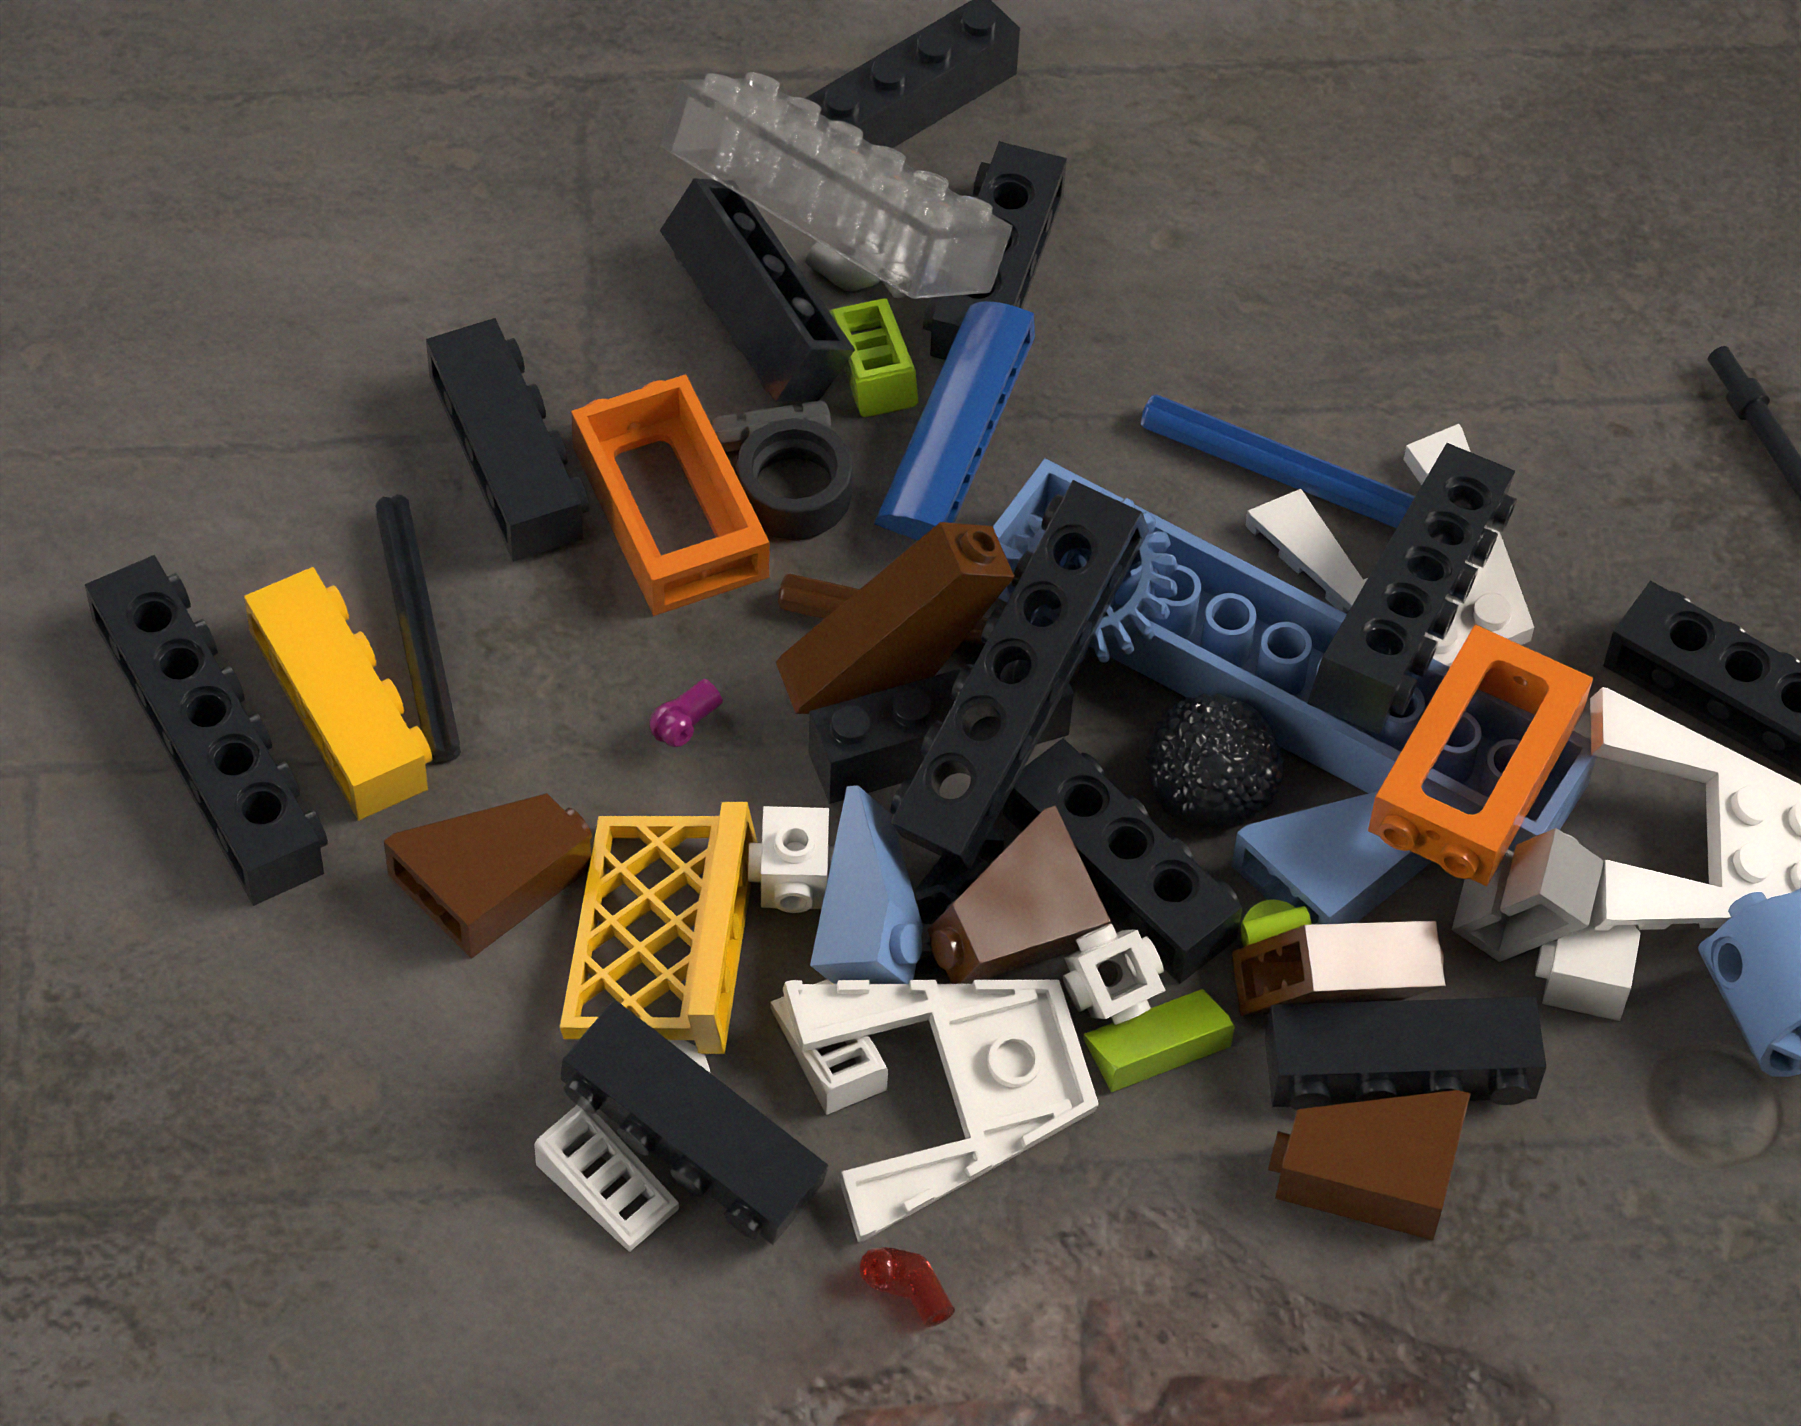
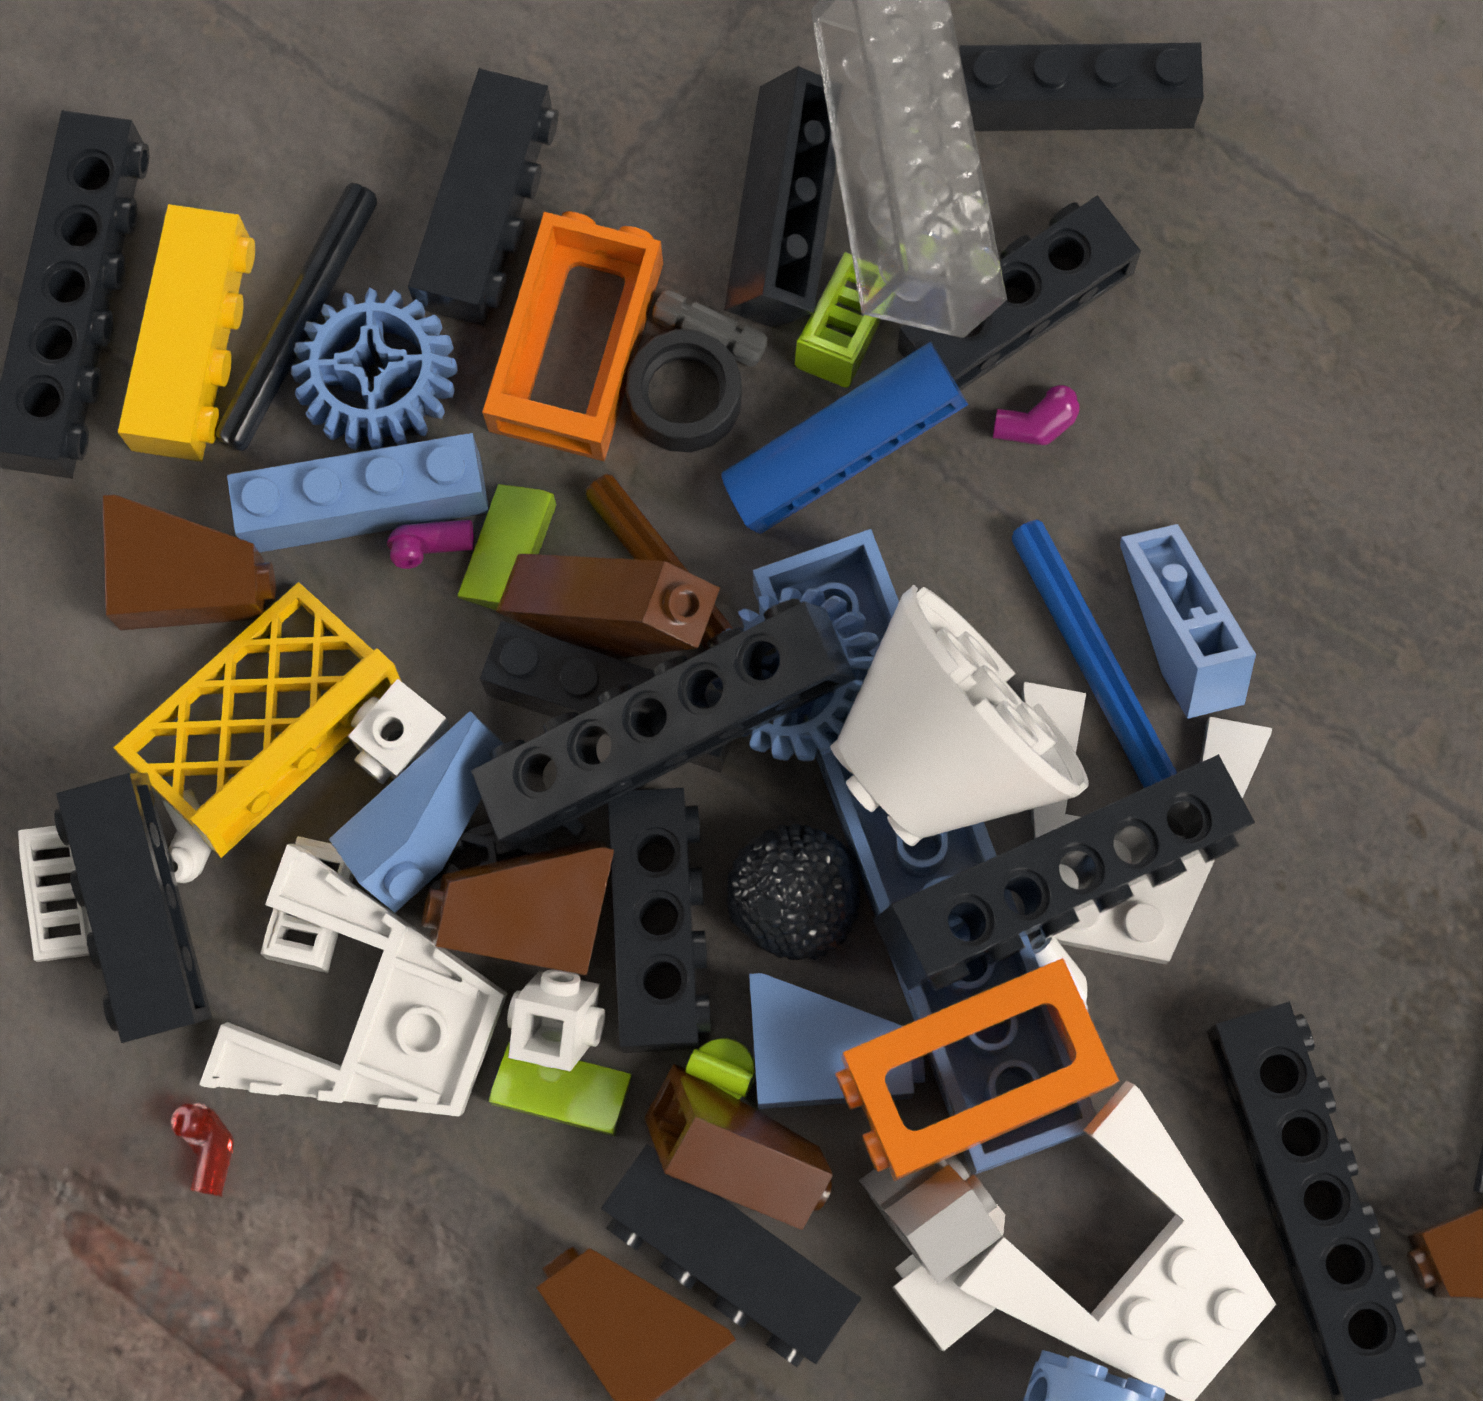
camera: 45 degrees right, 20 degrees up
(520, 639) = (326, 367): none -> medium blue gear
(598, 707) = (358, 493): none -> medium blue brick
(748, 680) = (512, 527): none -> lime slope
(1093, 331) = (1043, 422): none -> magenta arm
(1253, 511) = (945, 733): none -> white cone
(1337, 391) = (1188, 623): none -> medium blue slope

